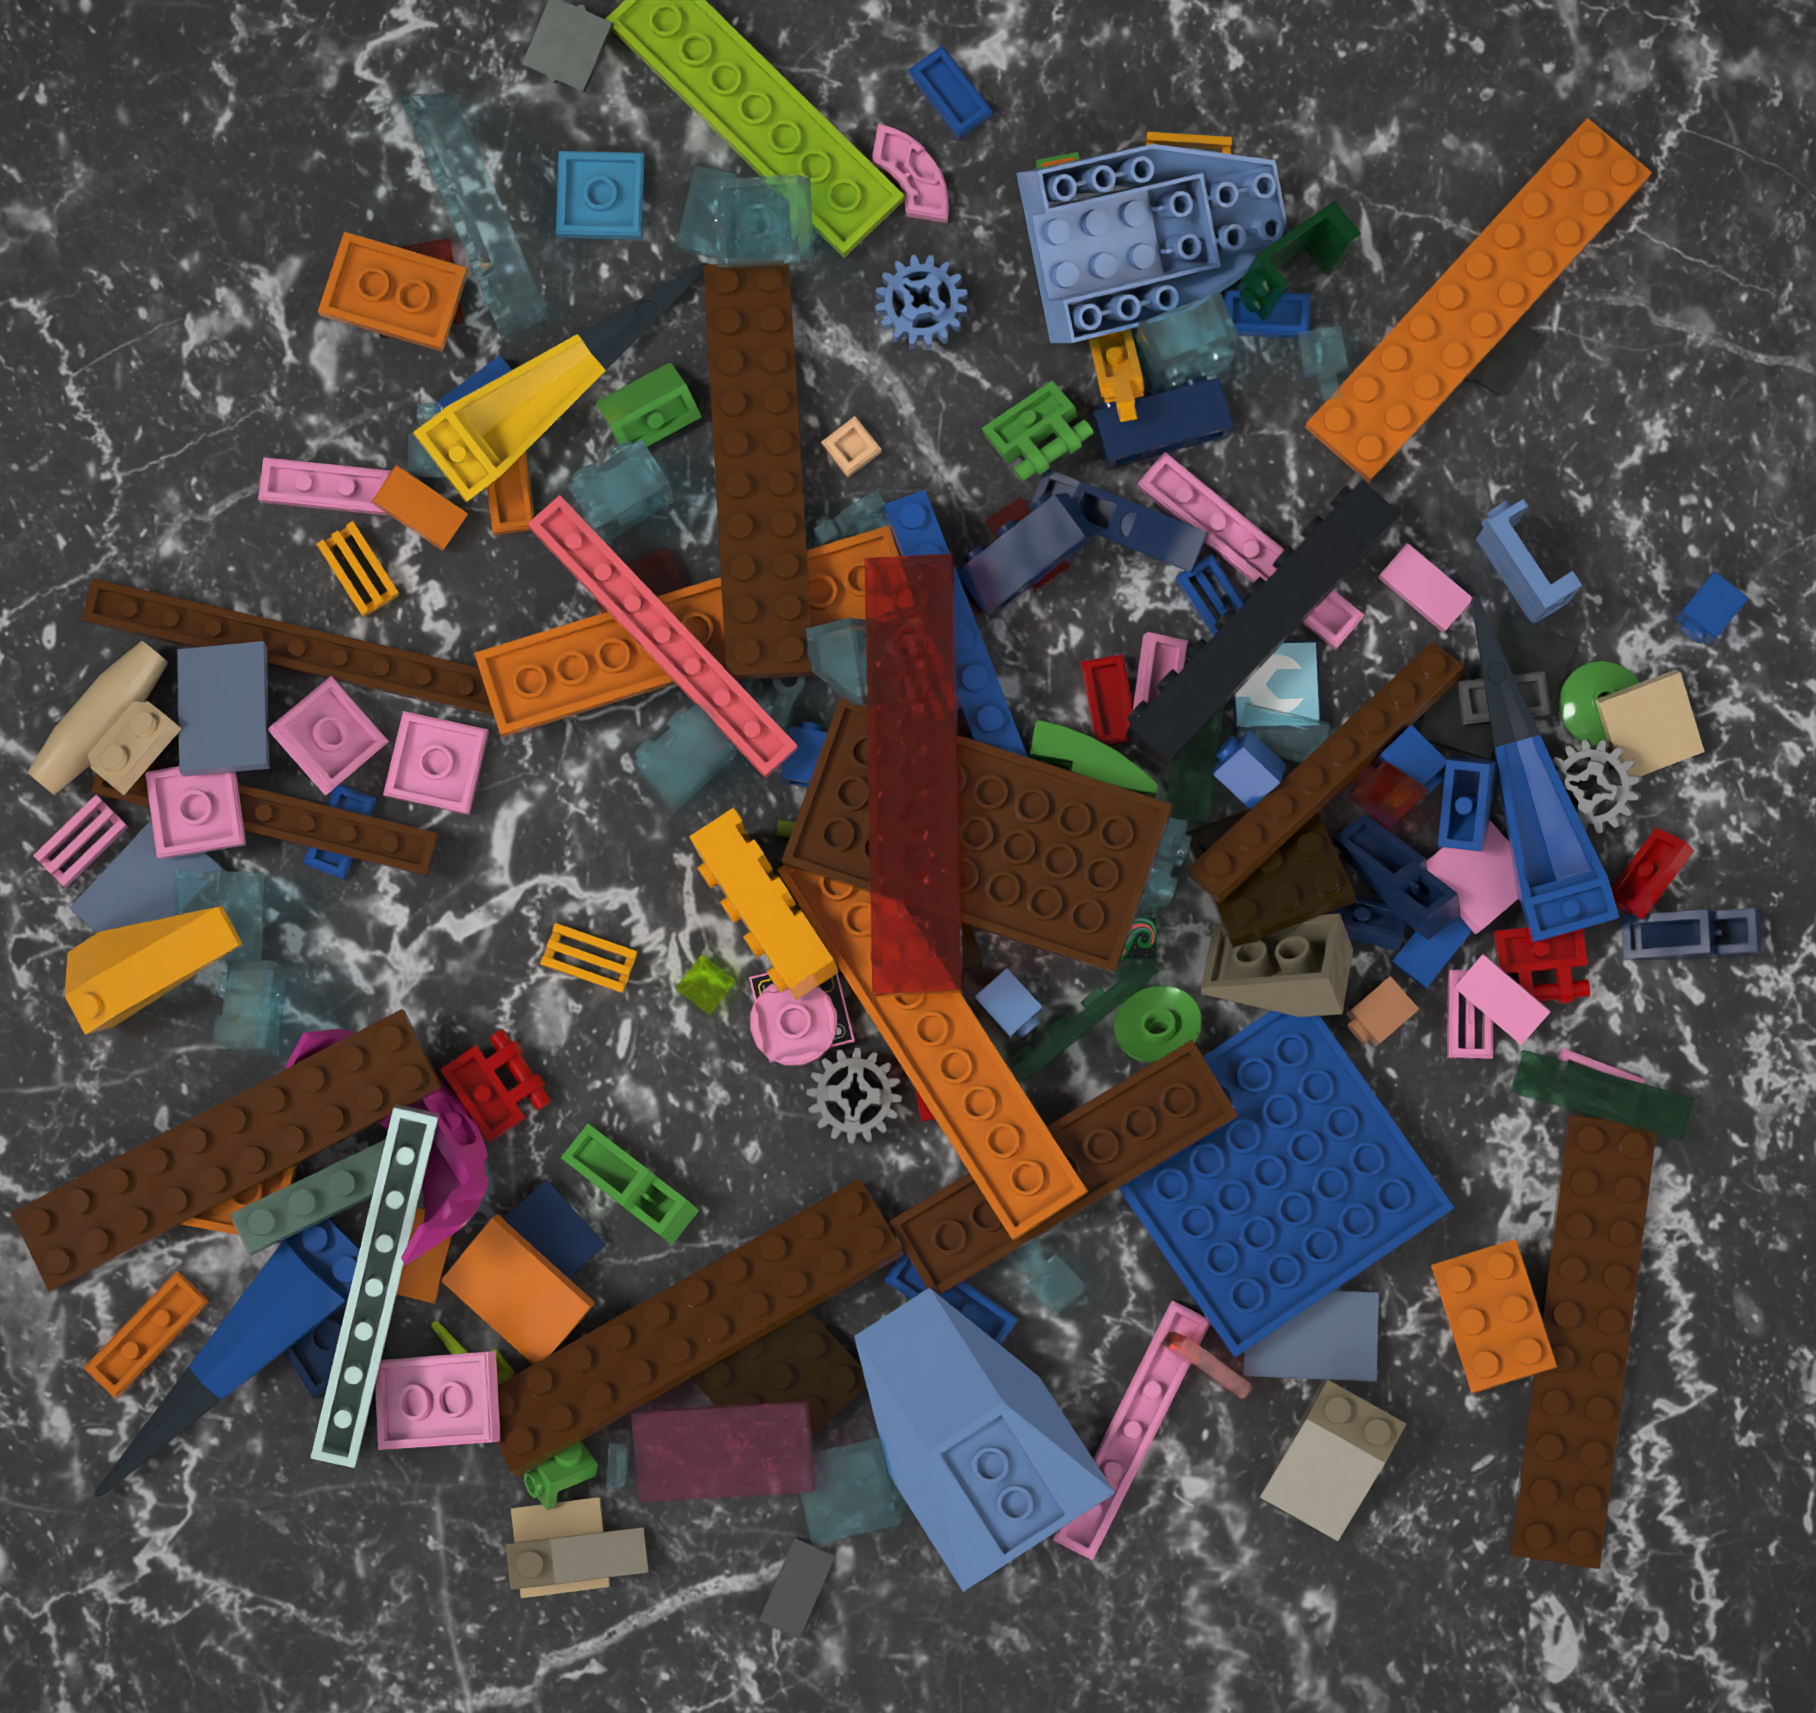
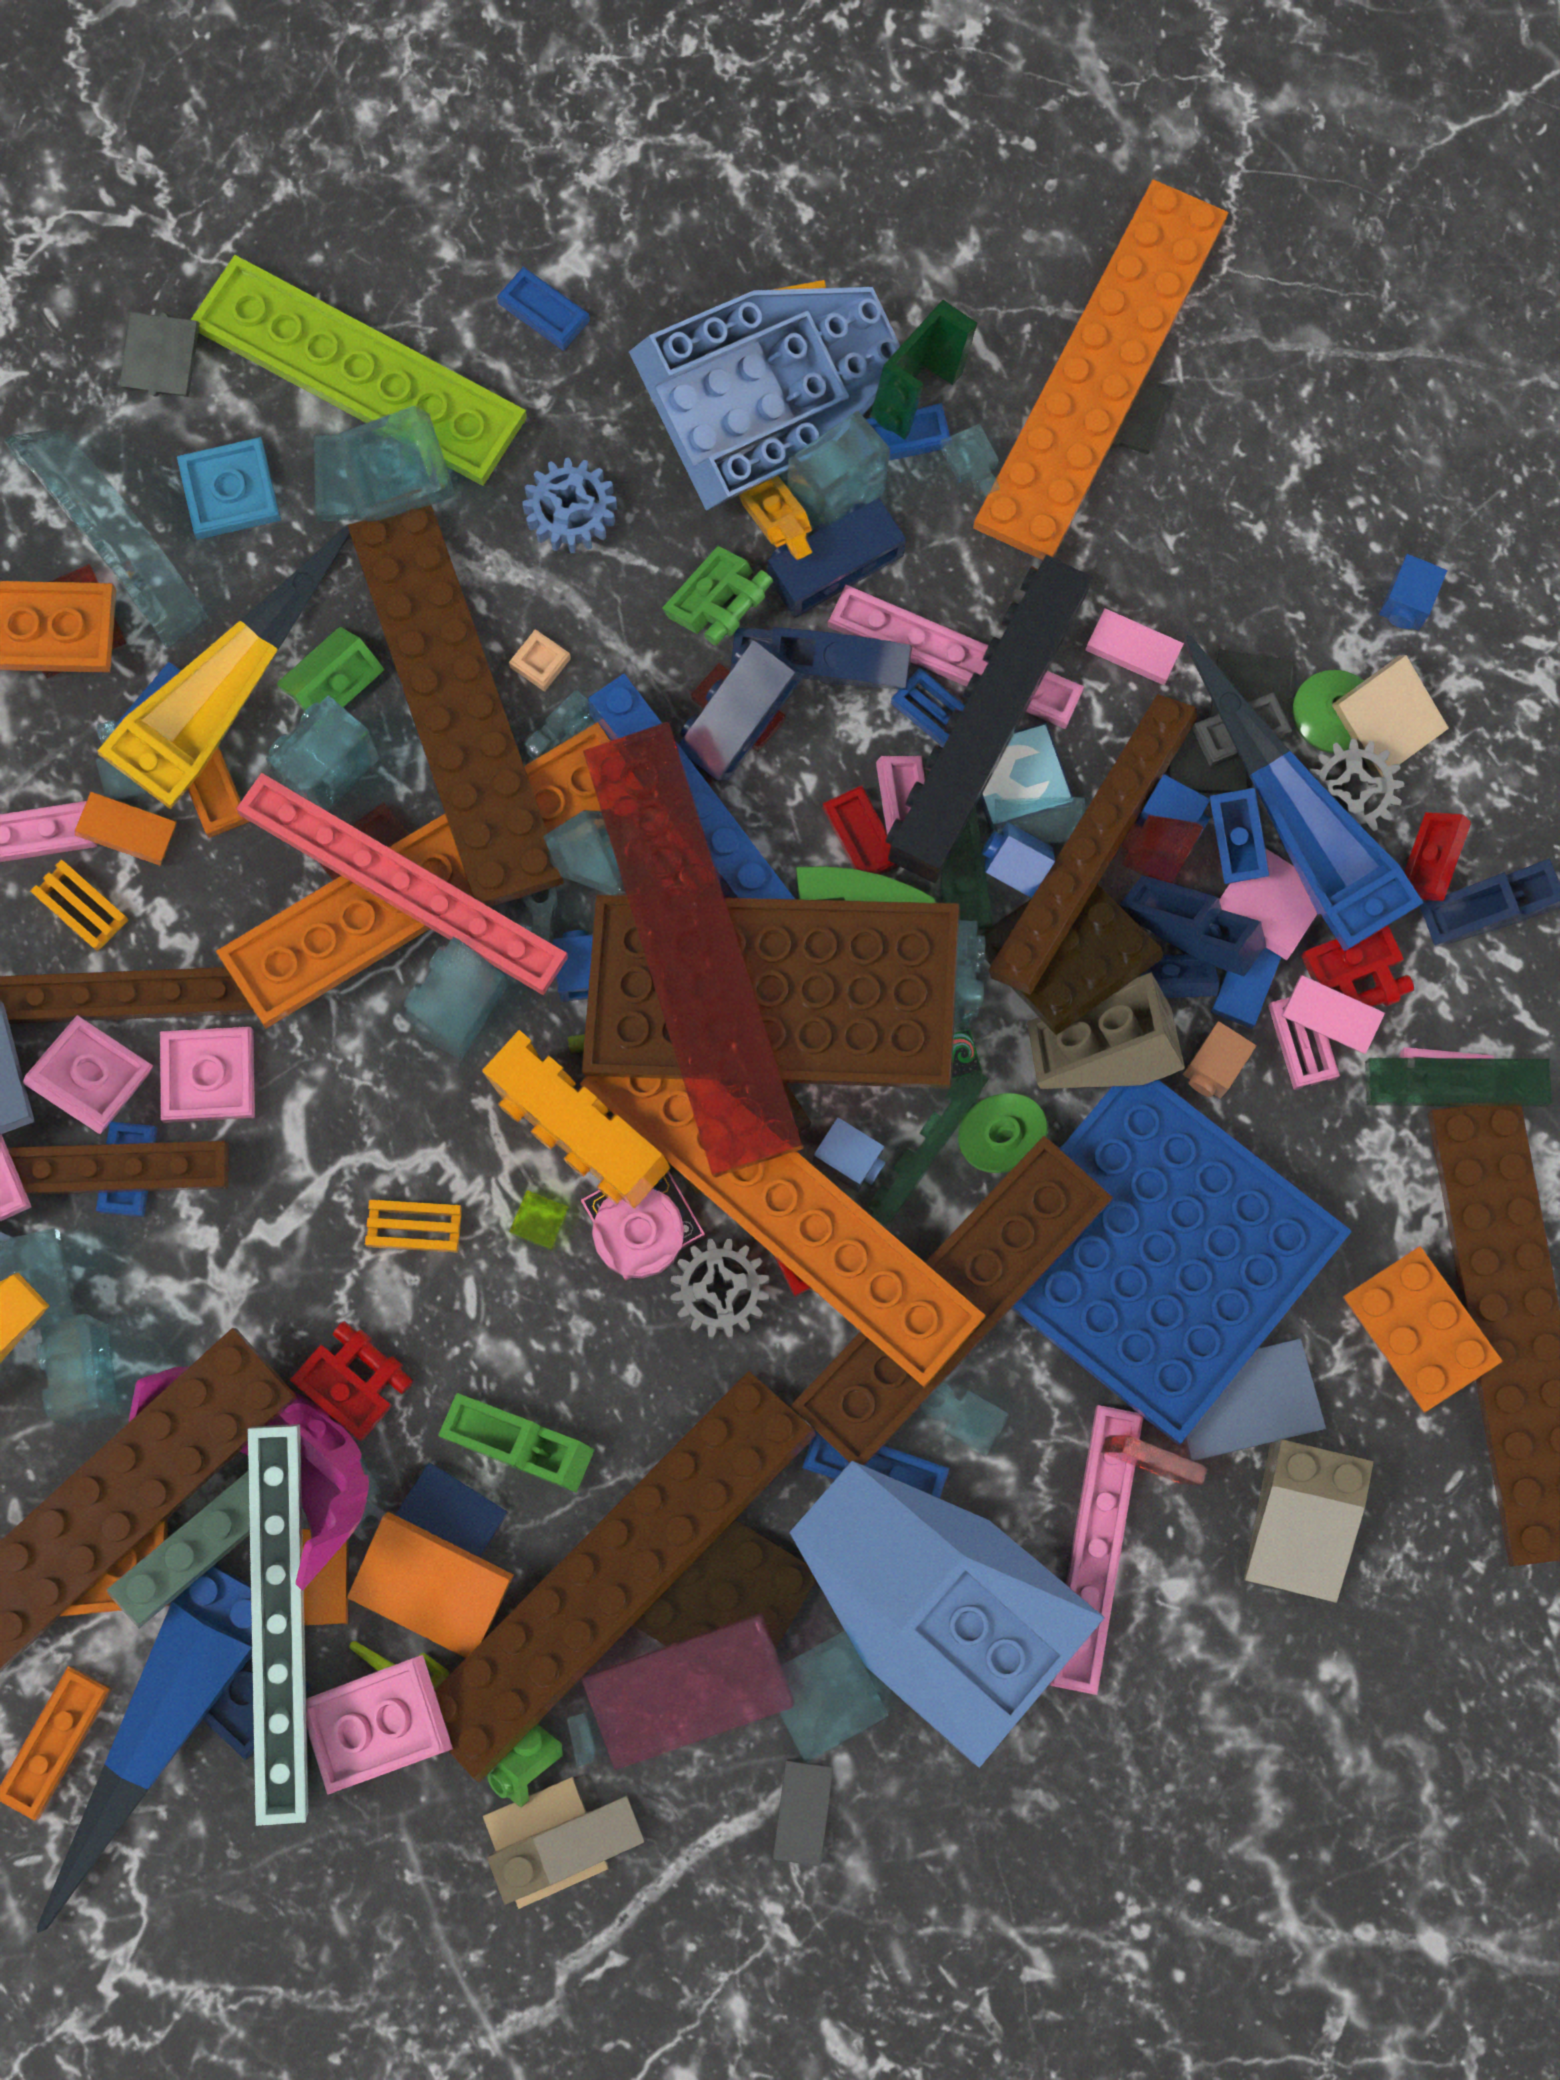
camera: 20 degrees left, 5 degrees down
(914, 173) = (529, 389): bright pink tile -> none
(1518, 567) = (1221, 598): medium blue panel -> none

